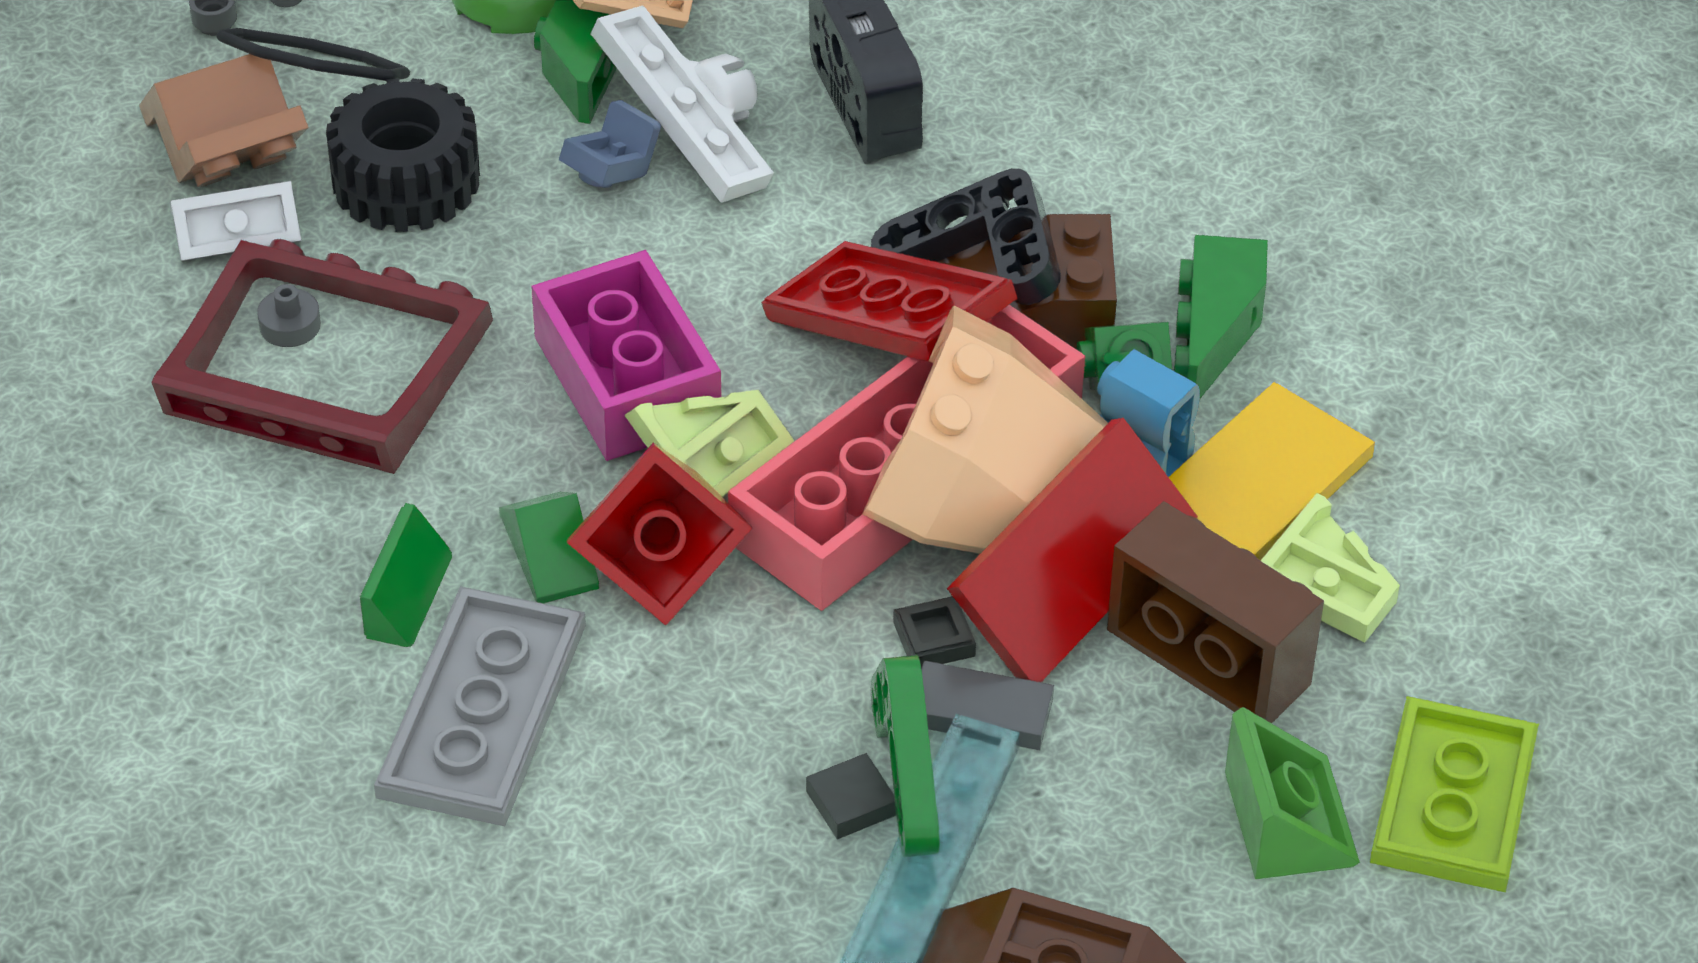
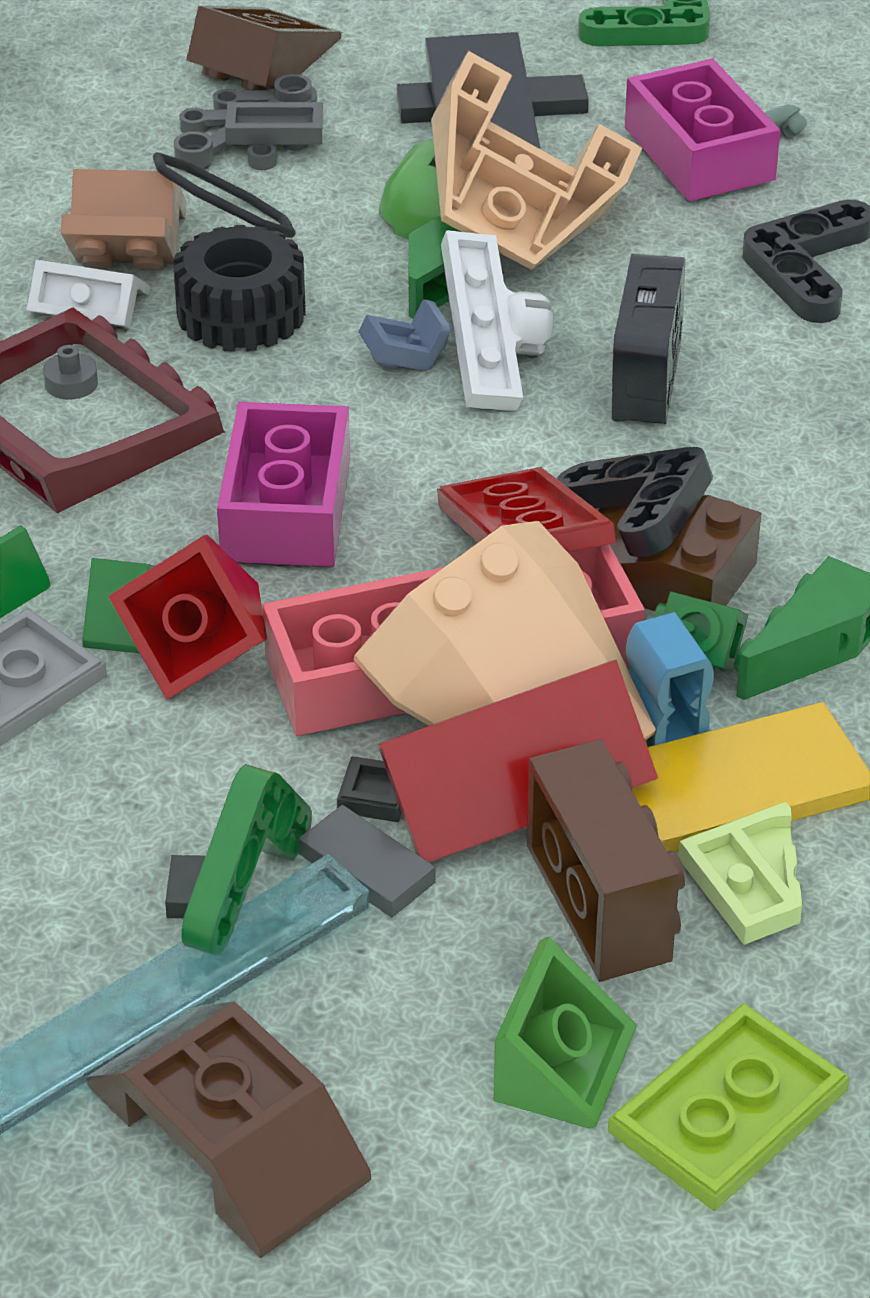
camera: 30 degrees right, 5 degrees down
(715, 436) = (298, 560): yellowish green wing -> none

